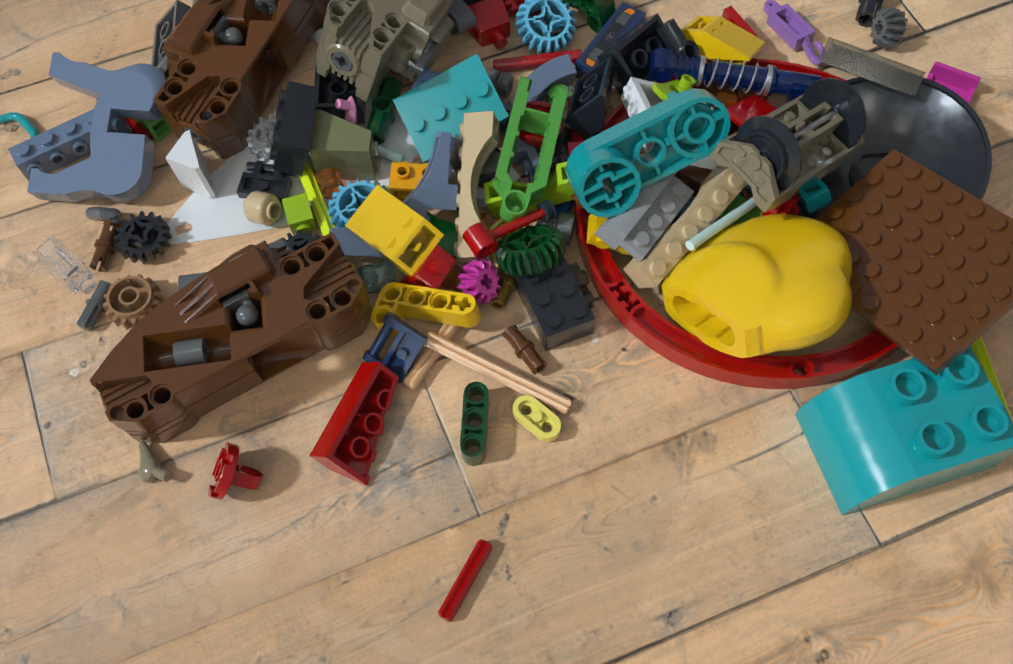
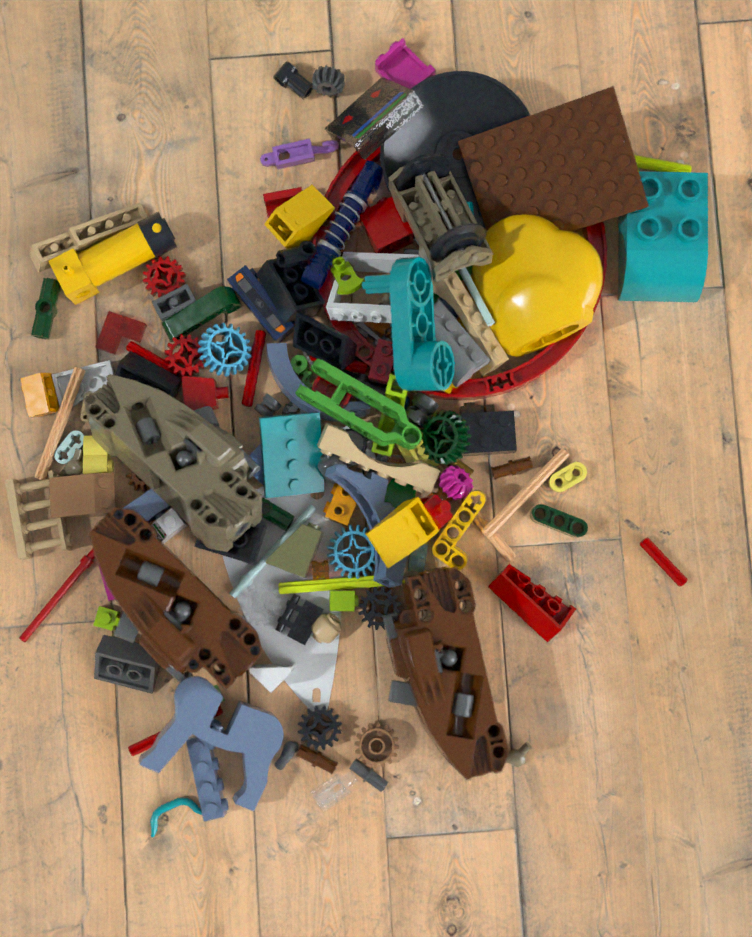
camera: 70 degrees left, 20 degrees up
(228, 472) = (543, 701): red tile -> none
(293, 128) = (275, 584): black brick -> none
(349, 107) = (267, 535): bright pink bar -> none
(403, 349) = (491, 556): dark blue plate -> none
(483, 240) = (432, 469): red piece -> none

